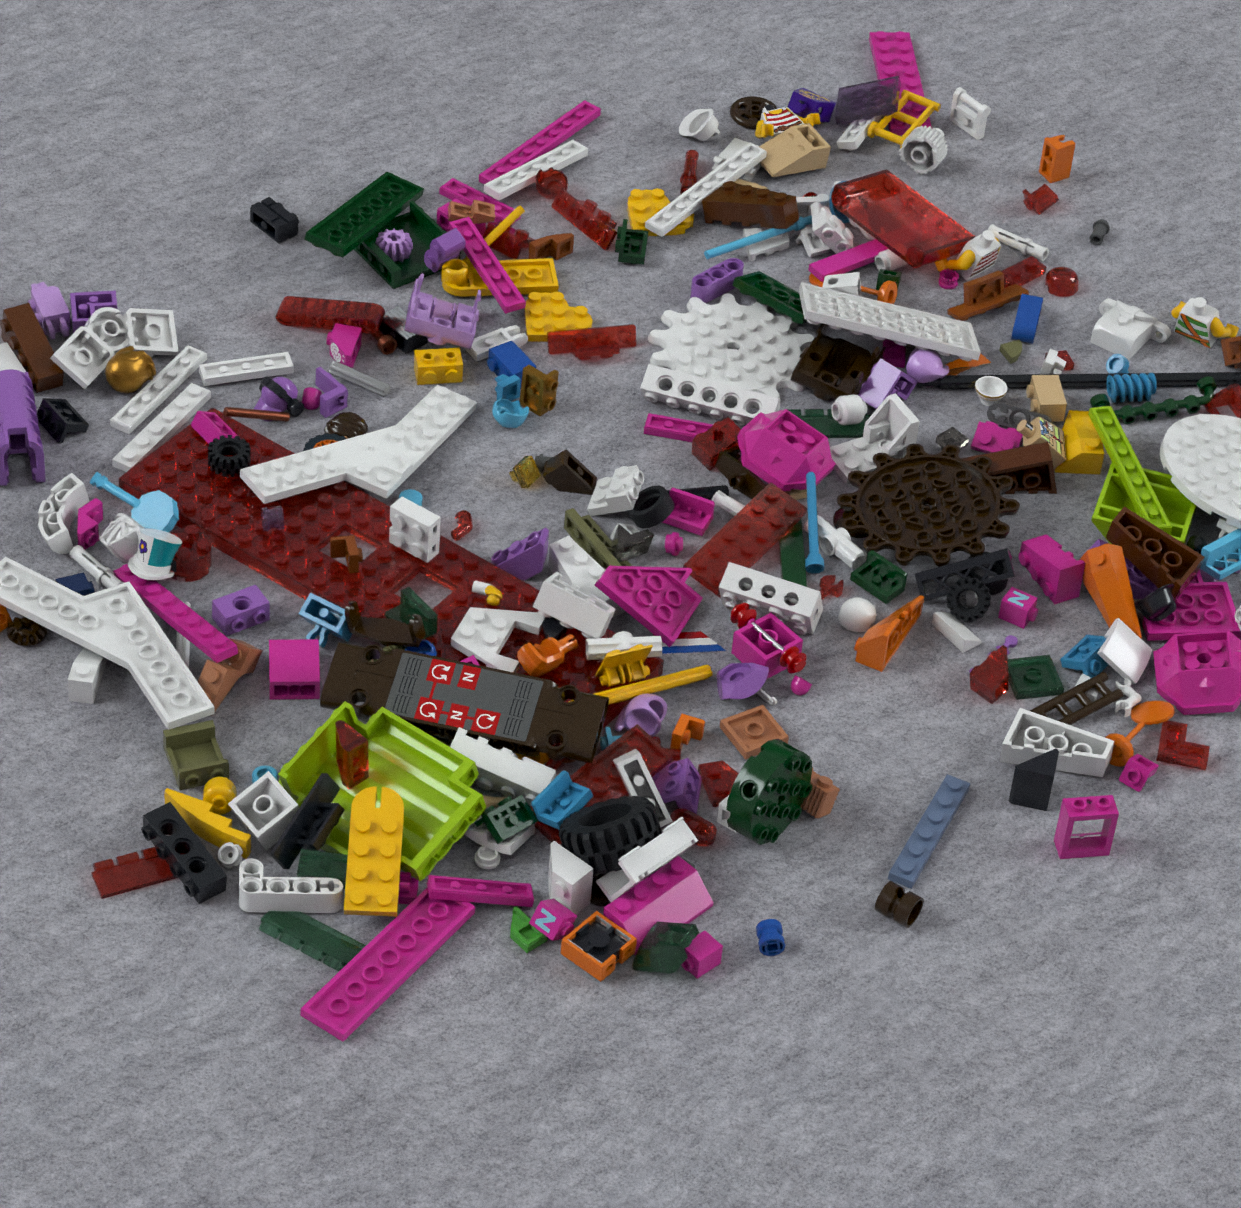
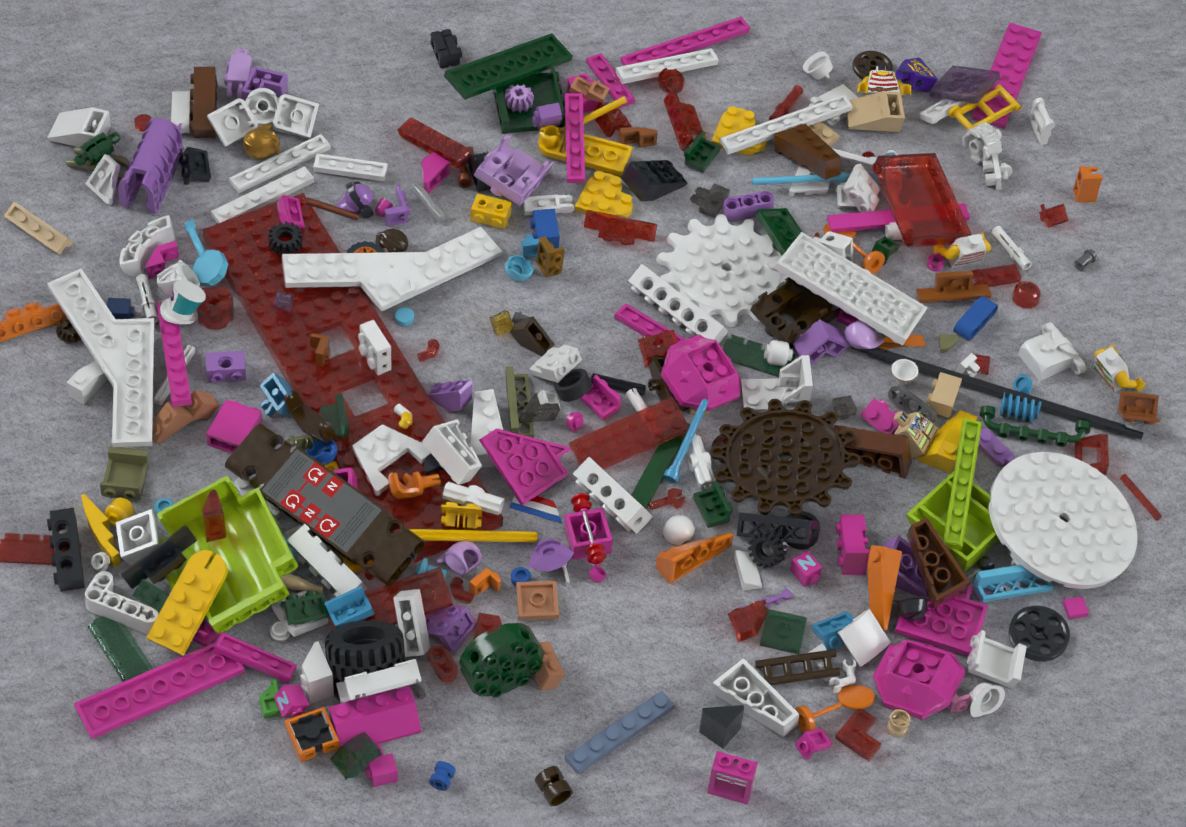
camera: 25 degrees right, 10 degrees up
(595, 284) = (652, 179): none -> black slope
(672, 286) = (710, 200): none -> clear smoke hinge
(715, 714) = (520, 575): none -> blue tile
(954, 173) = (998, 172): none -> white hips
(1142, 439) = (994, 448): none -> medium lavender hinge
(1213, 722) = (898, 723): none -> tan wheel

